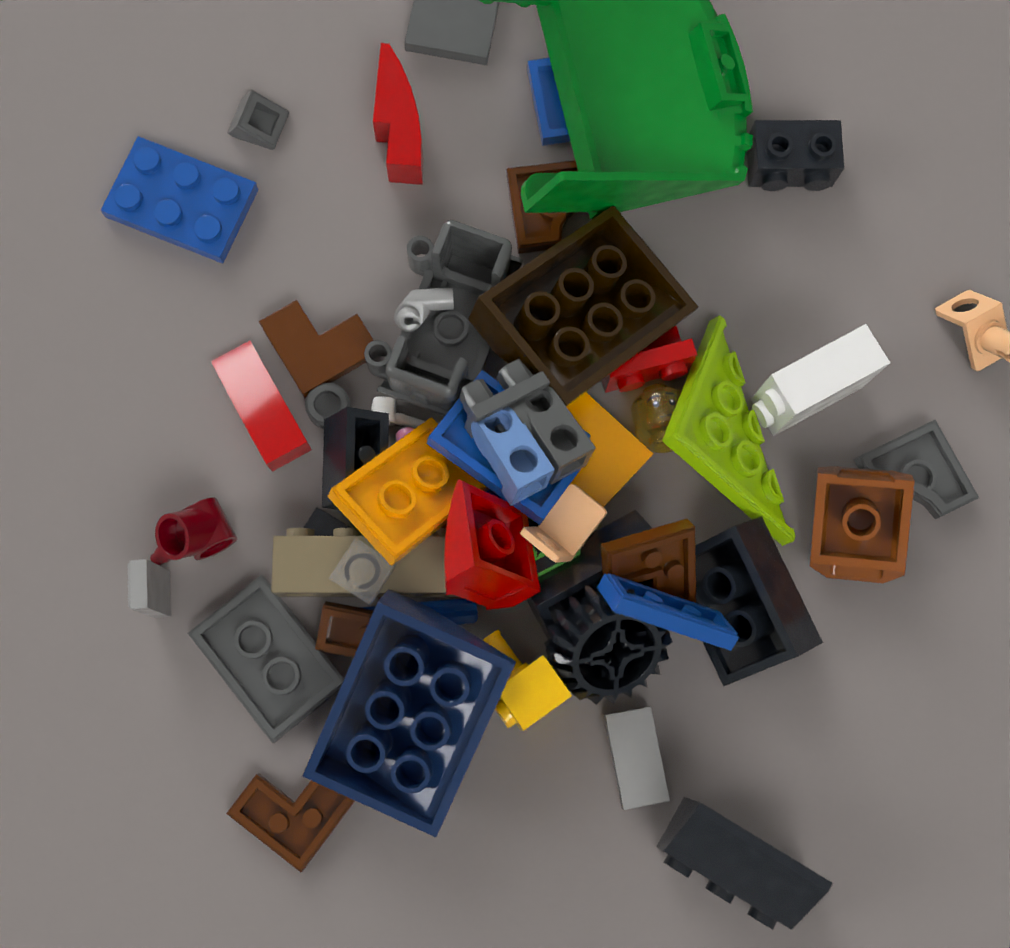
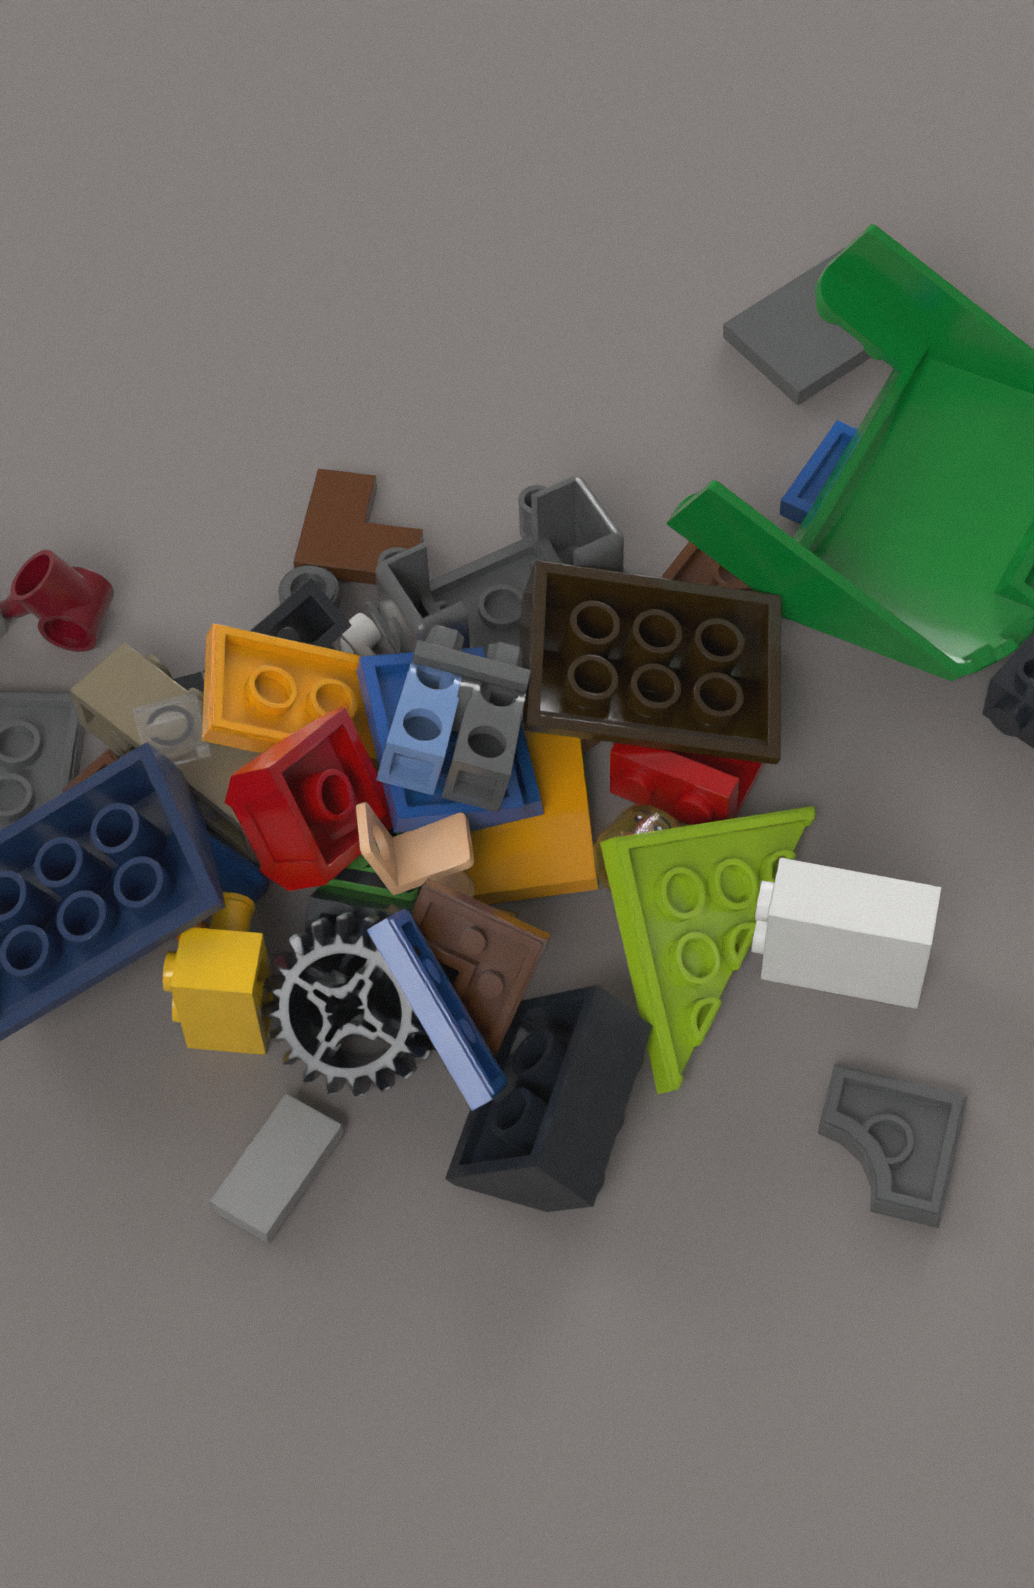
camera: 50 degrees right, 20 degrees down
(180, 199) = (357, 317): blue plate -> none
(258, 121) = (505, 300): dark grey slope -> none
(261, 406) = (239, 545): slope -> none
(397, 120) = (641, 386): red slope -> none
(420, 304) = (485, 556): light grey arm -> none
(740, 865) = (268, 1347): black slope -> none
(861, 524) = (756, 1121): dark orange slope -> none

